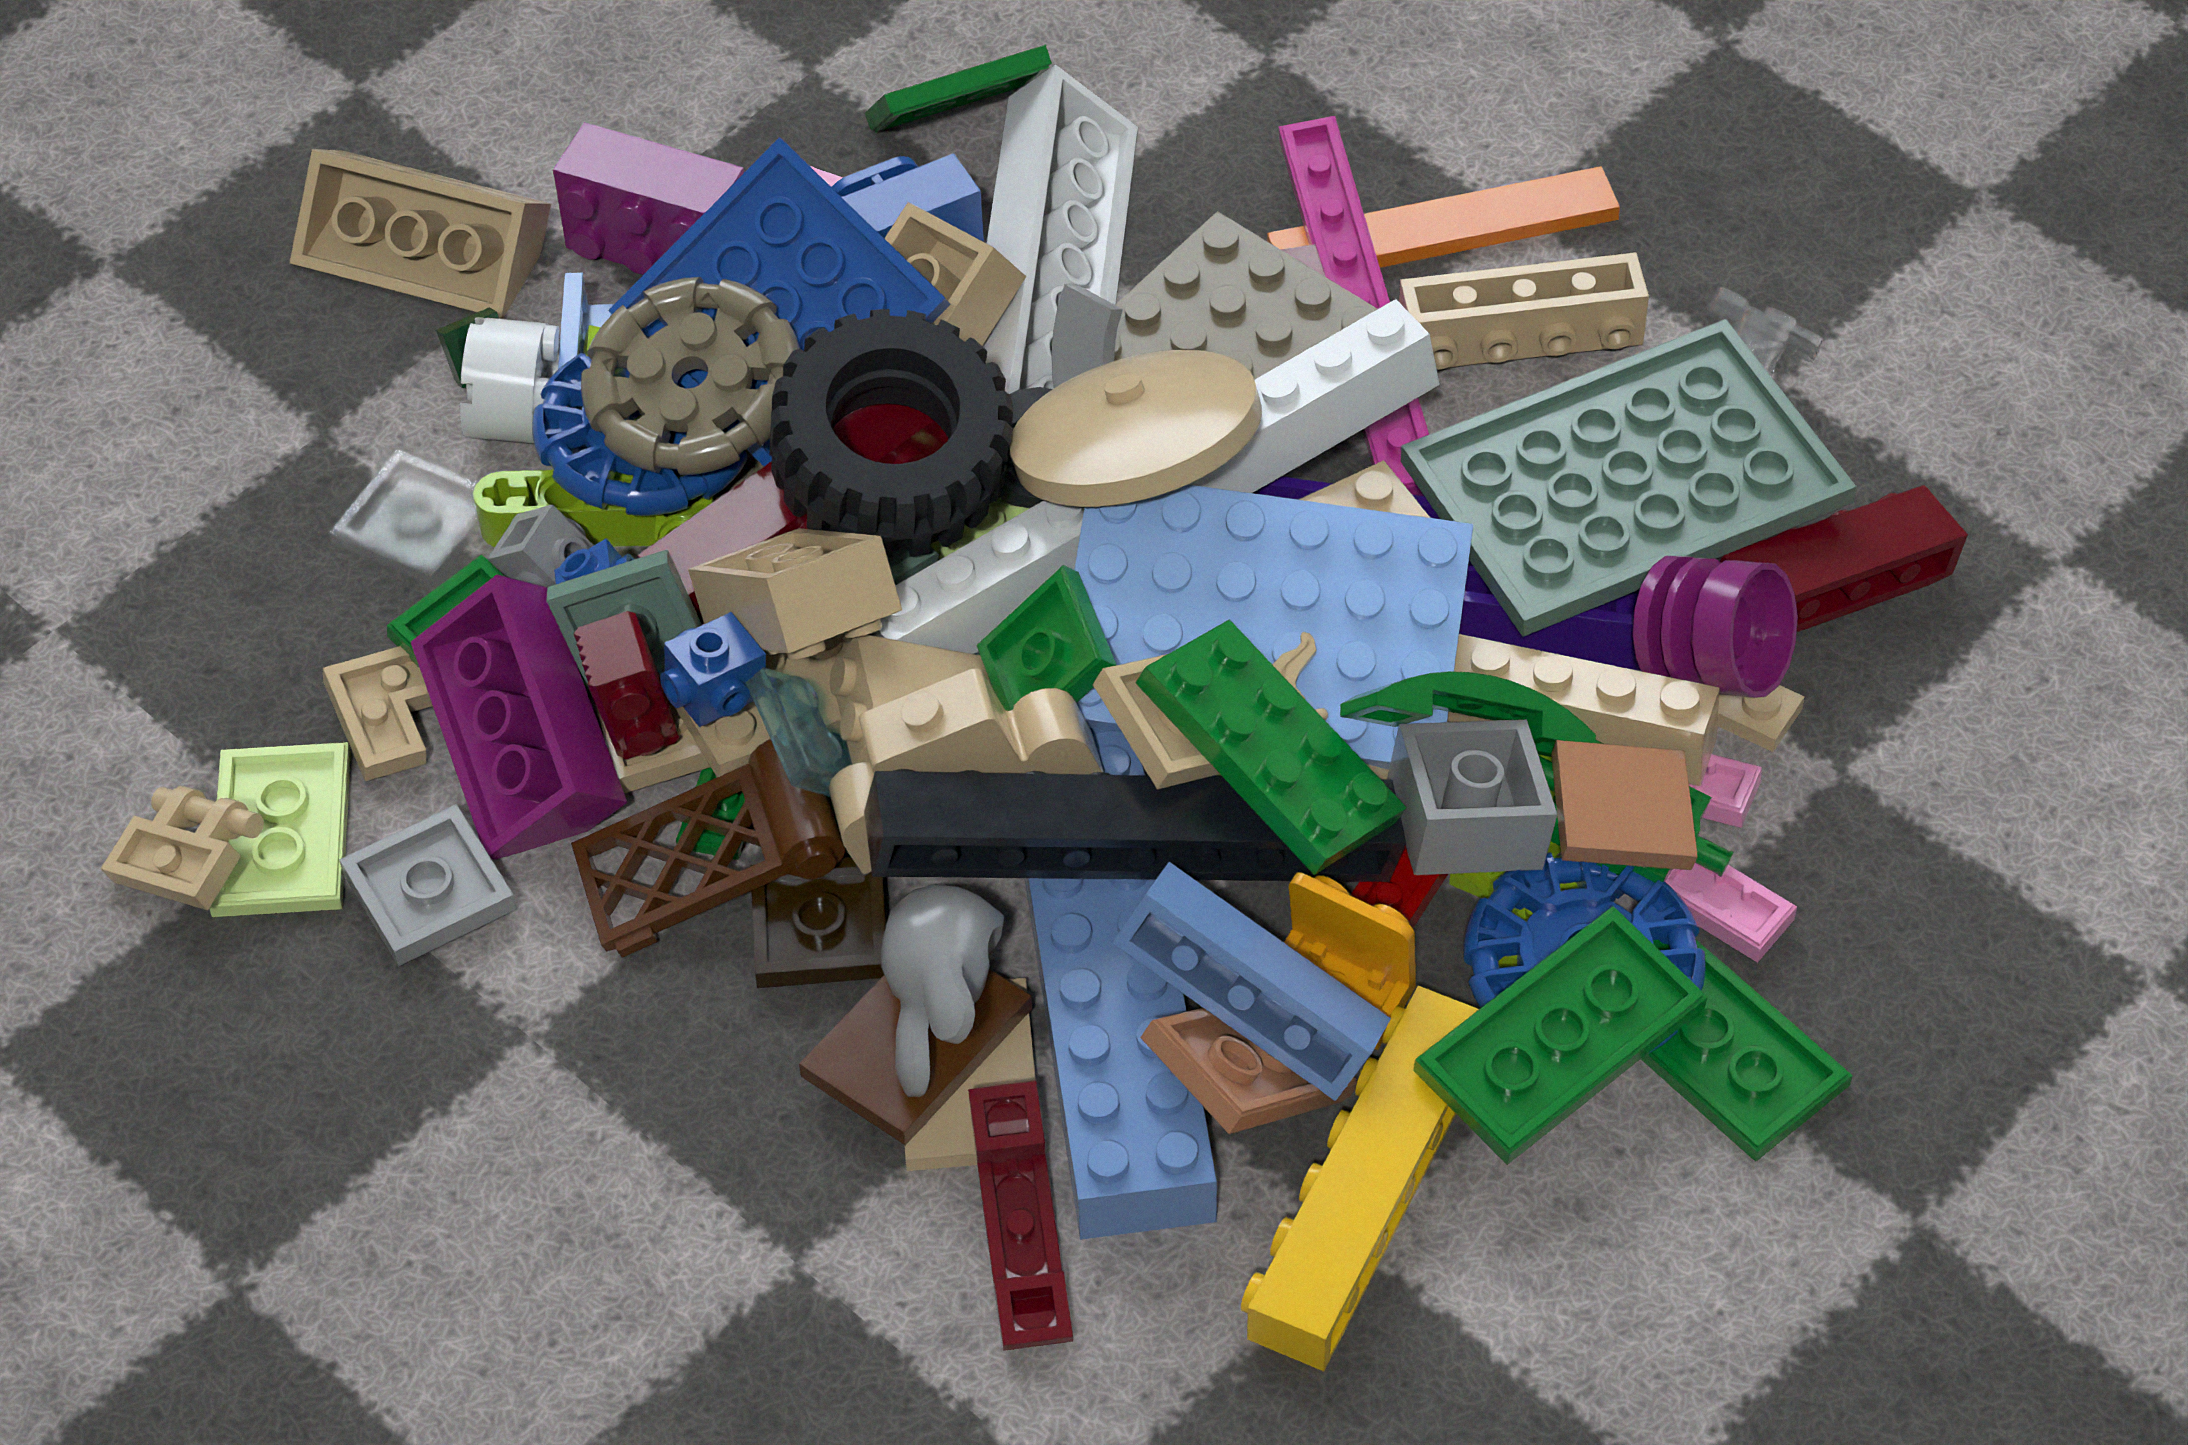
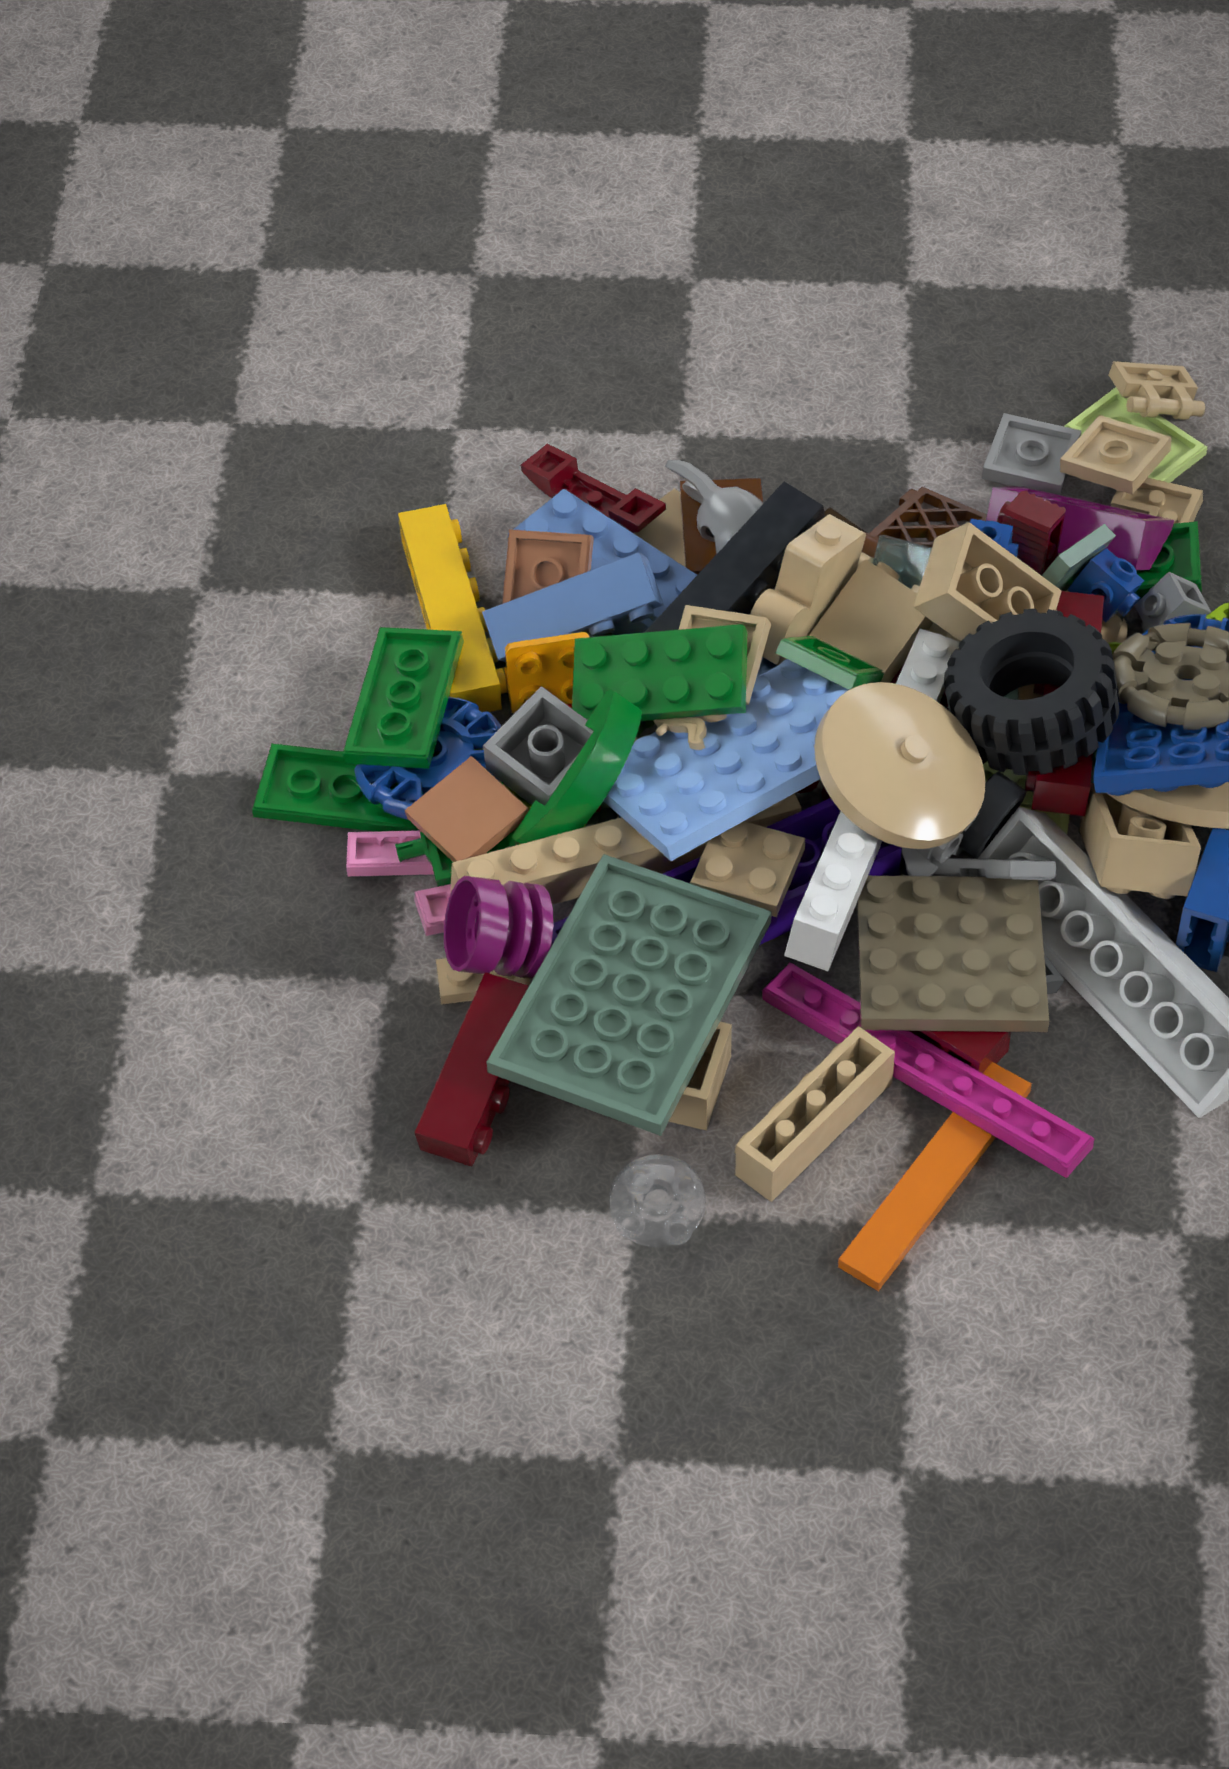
camera: 140 degrees right, 0 degrees up
(359, 773) = (1115, 454): none -> tan plate

